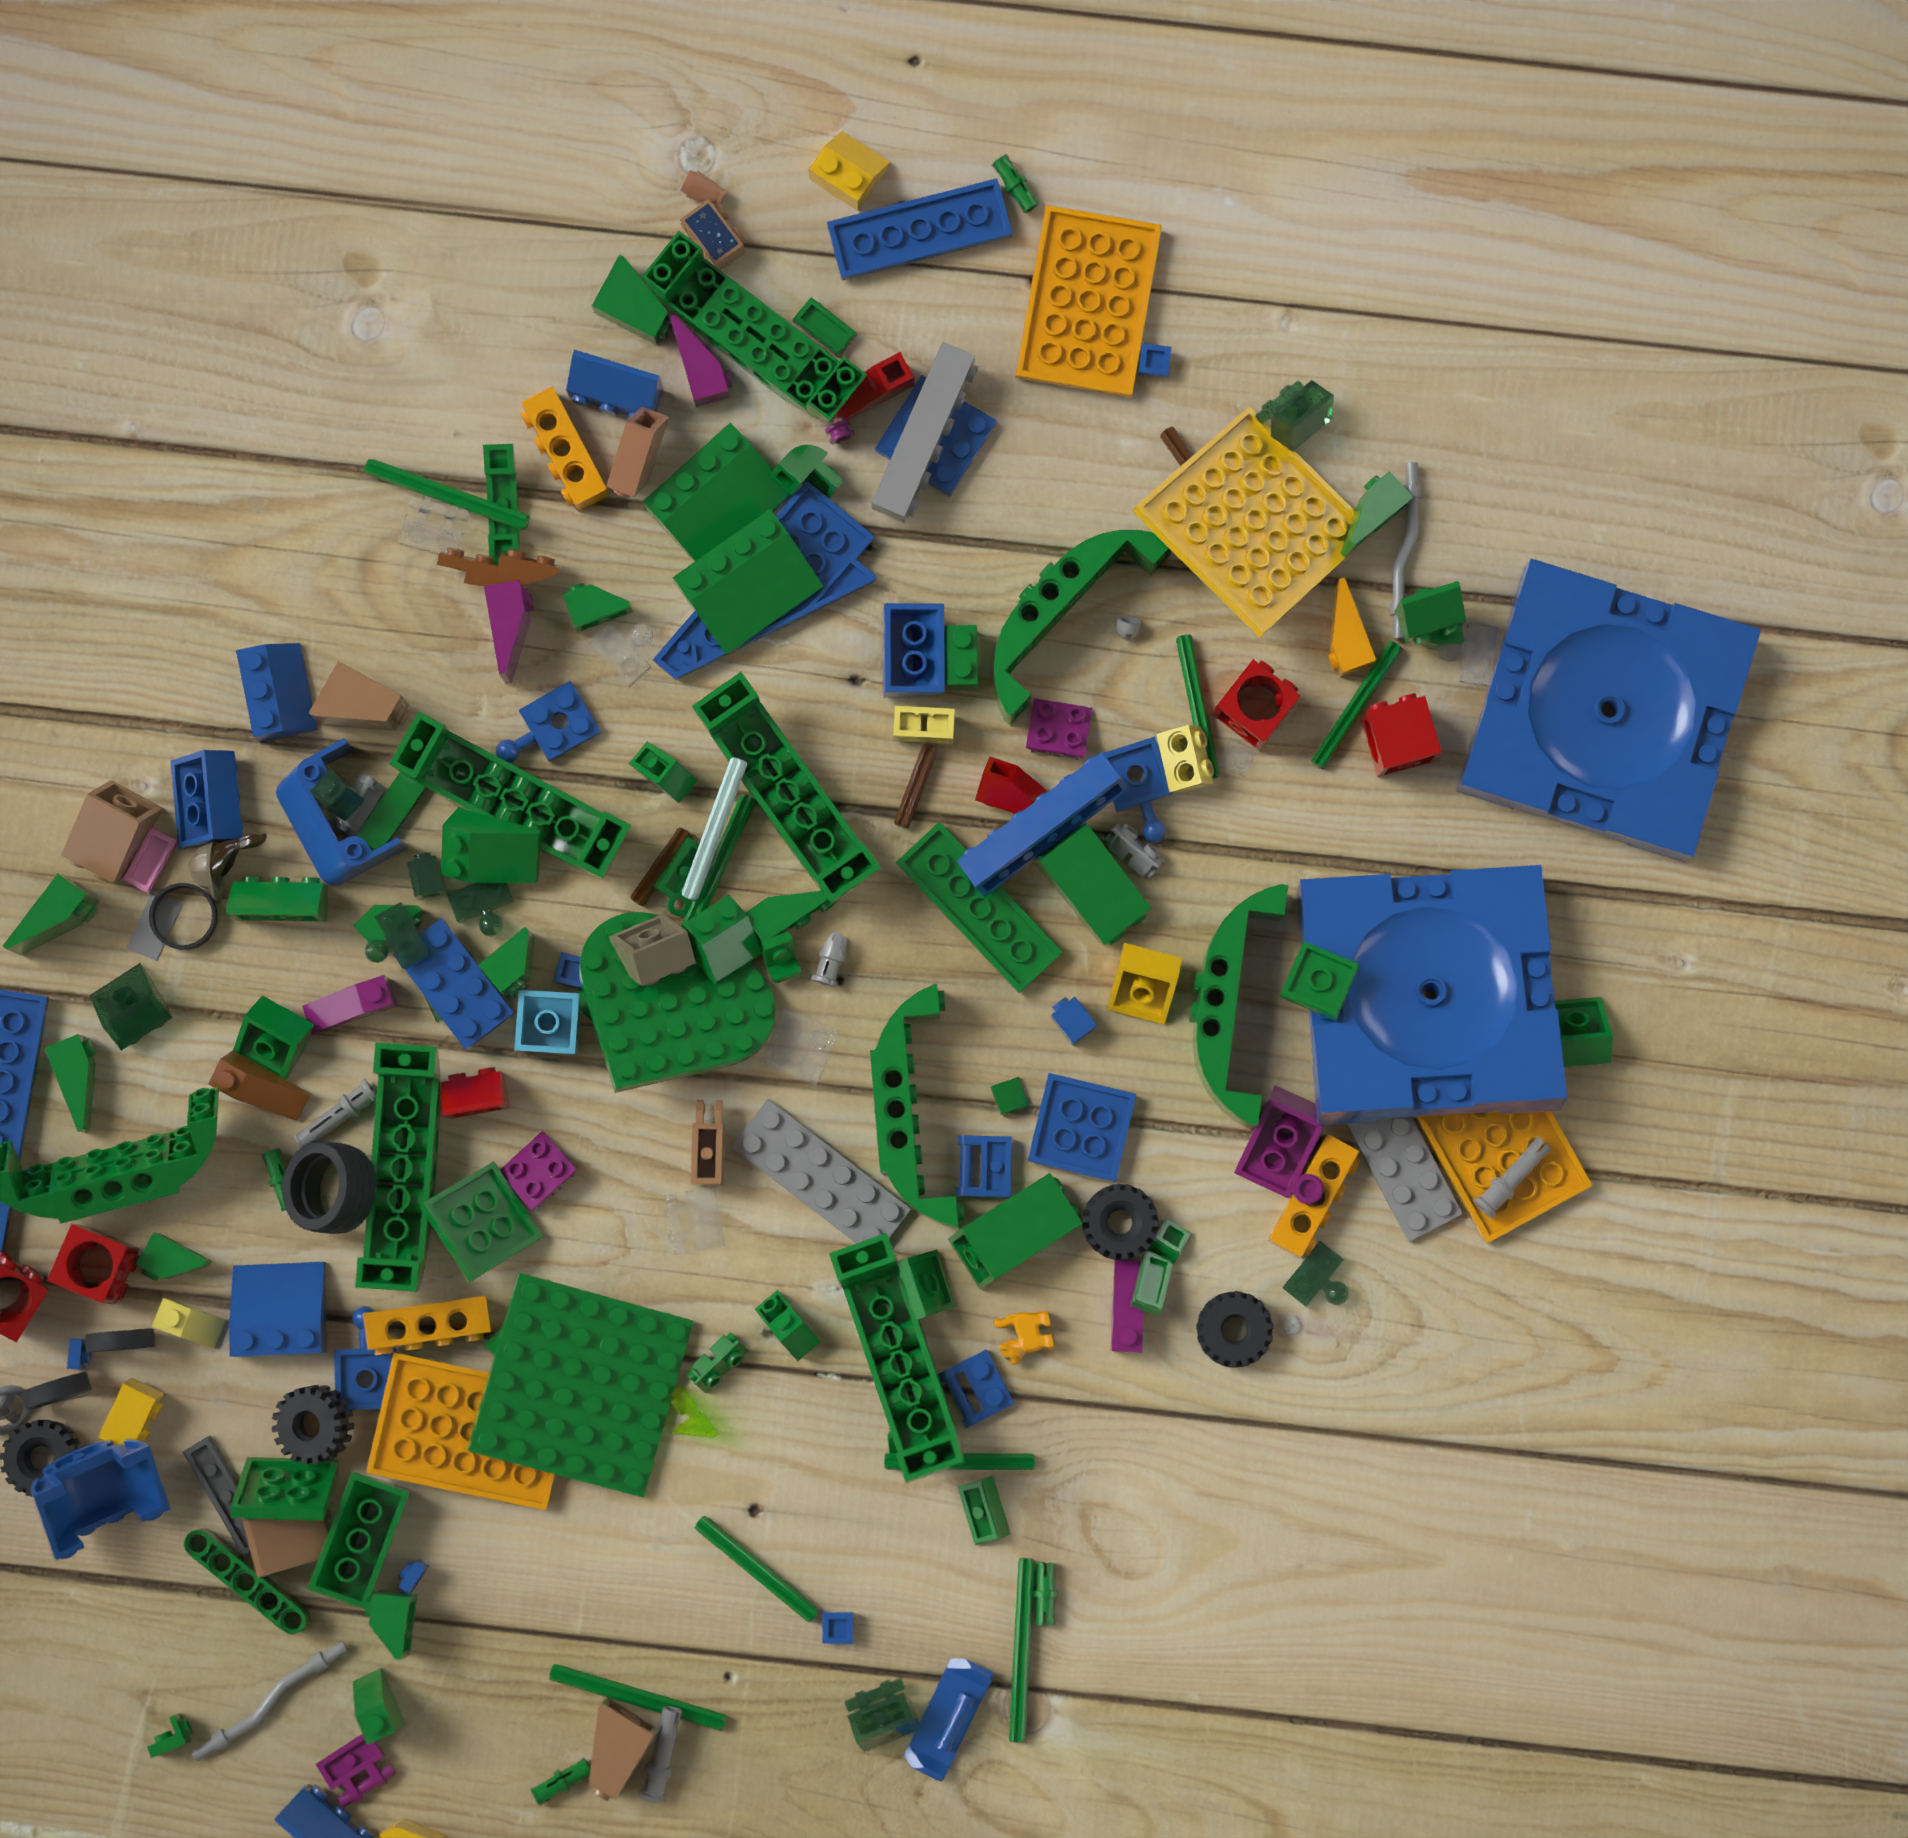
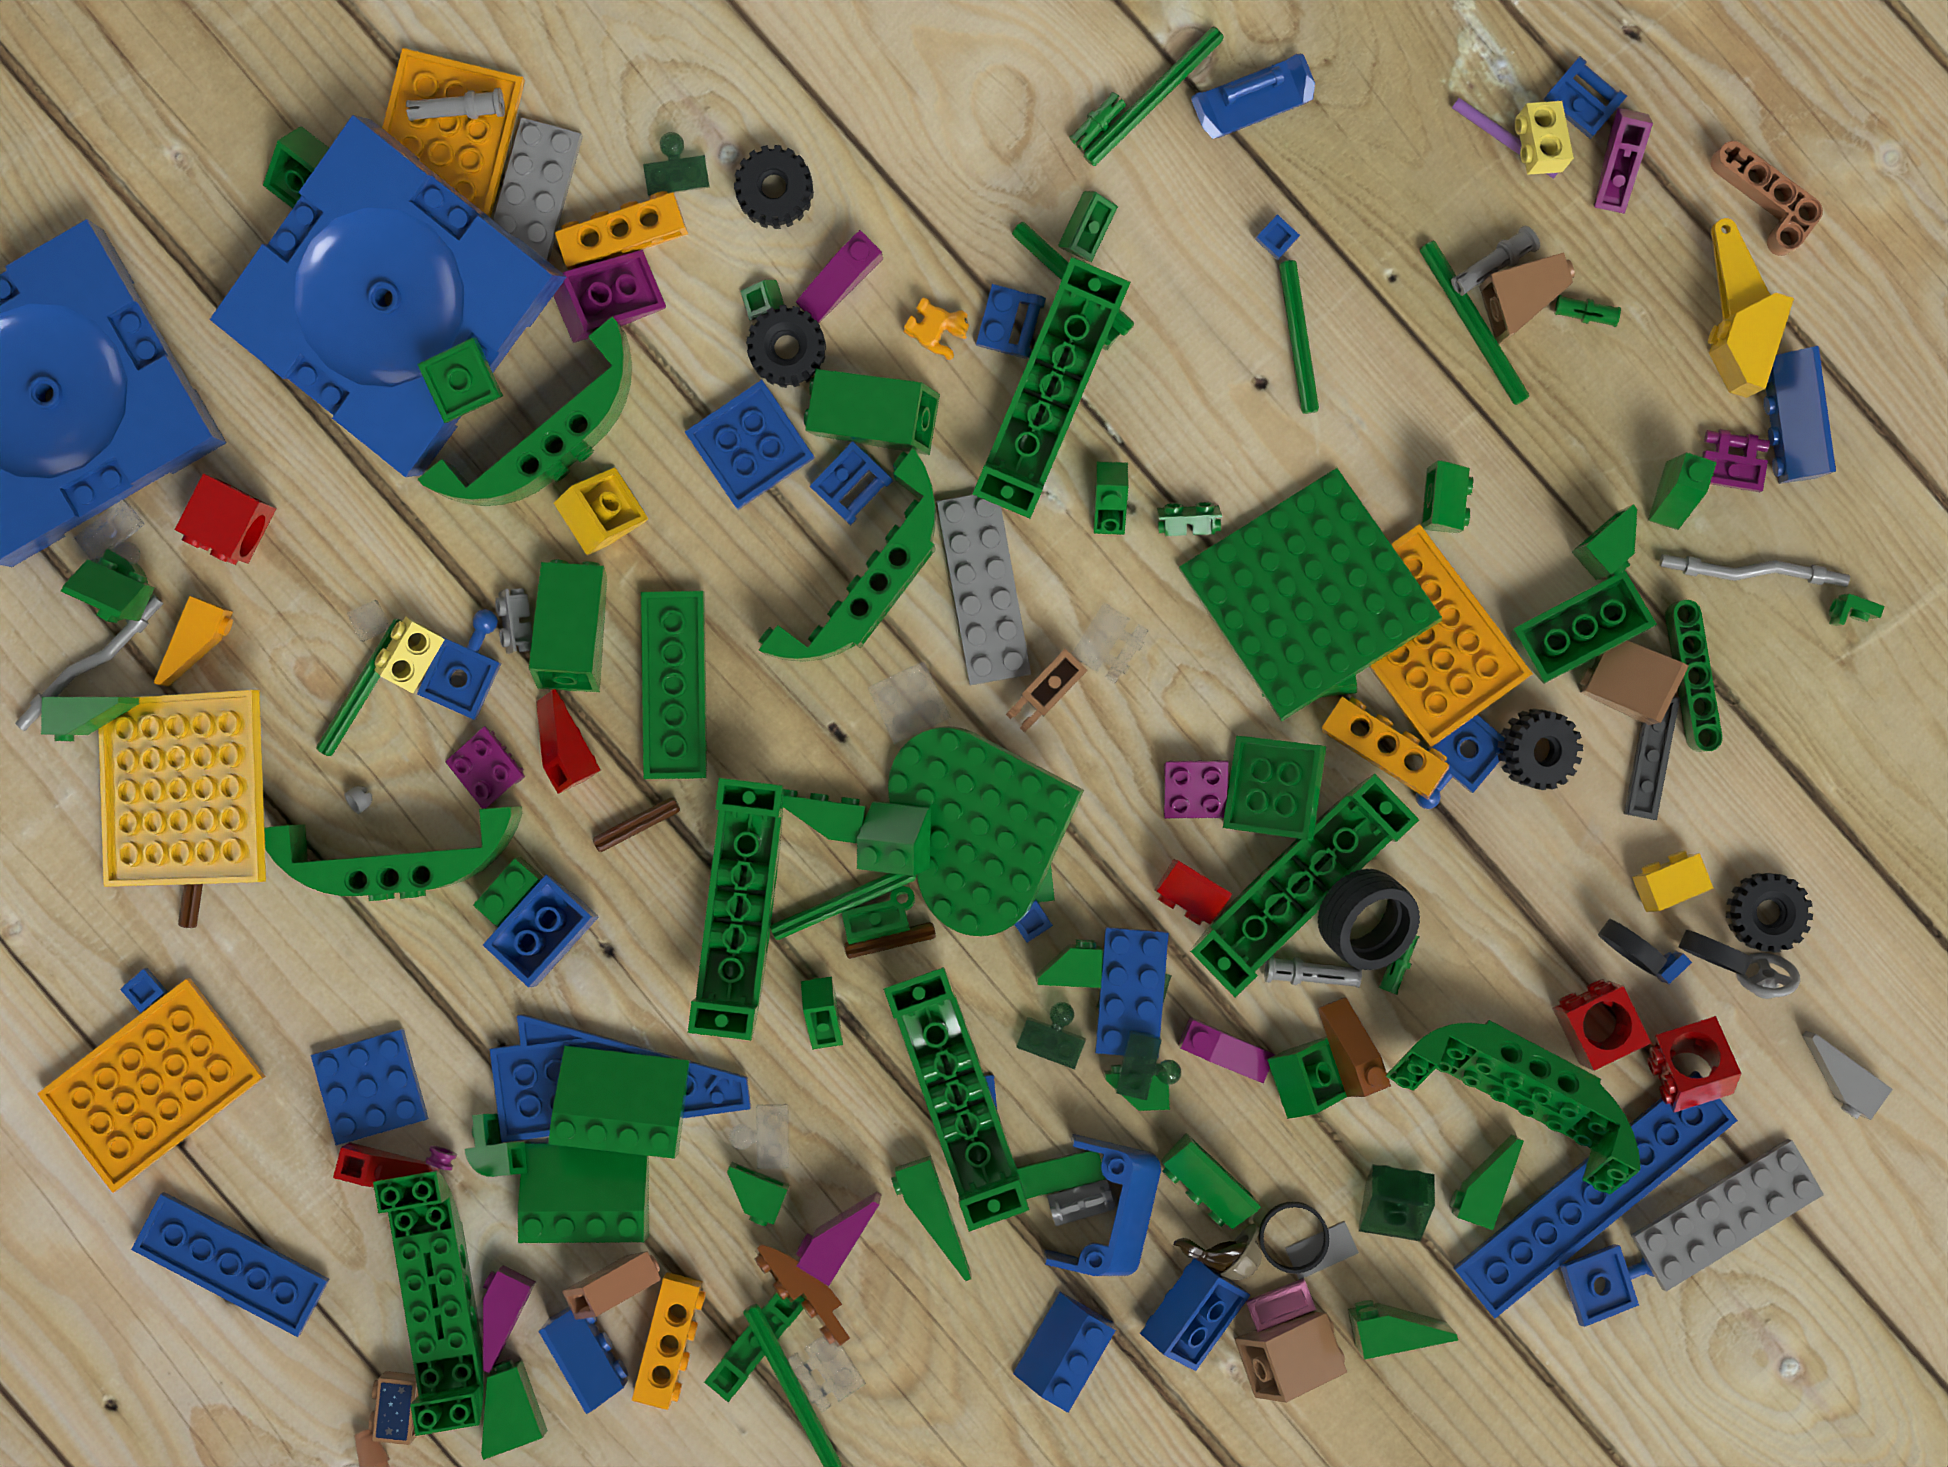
camera: 135 degrees left, 5 degrees up
(95, 1489) = (1752, 850): blue cylinder -> none
(169, 1259) = (1538, 979): green slope -> none
(188, 1322) = (1566, 914): light yellow slope -> none
(278, 1309) = (1489, 862): blue slope -> none
(284, 1489) = (1608, 716): green plate -> none
(337, 795) = (1090, 1223): clear green brick -> none
(358, 702) = (1008, 1283): medium nougat slope -> none
(412, 1575) = (1564, 567): blue plate -> none
(426, 876) = (1077, 1097): clear green brick -> none
(470, 708) = (926, 1199): none -> green slope
(489, 849) = (1011, 1073): green slope -> none
(538, 718) = (886, 1117): blue plate -> none
(542, 1546) = (1446, 497): none -> green slope
(548, 1022) = (1086, 895): medium azure slope -> none
(653, 949) = (953, 877): dark tan slope -> none
(697, 1423) = (1246, 486): clear neon green slope -> none
(714, 828) = (821, 930): light aqua axle -> none
(780, 957) = (862, 784): green bracket -> none
(824, 327) = (377, 1253): green tile -> none
(832, 956) = (823, 748): light grey piece -> none
(848, 169) = (243, 1364): yellow slope -> none
(884, 1720) = (1307, 135): clear green brick -> none
(924, 431) = (373, 1097): light grey brick -> none
(924, 724) = (585, 864): light yellow brick -> none
(926, 1284) = (977, 431): green plate -> none
(1009, 1095) = (783, 519): green slope -> none
(1015, 183) = (121, 1232): green pin -> none
(1042, 824) = (563, 700): blue brick -> none
(1072, 1019) = (681, 532): blue brick -> none
(1152, 1283) = (804, 277): green tile -> none
(1229, 708) = (340, 654): red brick -> none
(1297, 413) = (69, 846): clear green brick -> none
(1307, 1189) = (620, 238): magenta tile -> none
(1356, 704) = (239, 577): green axle -> none

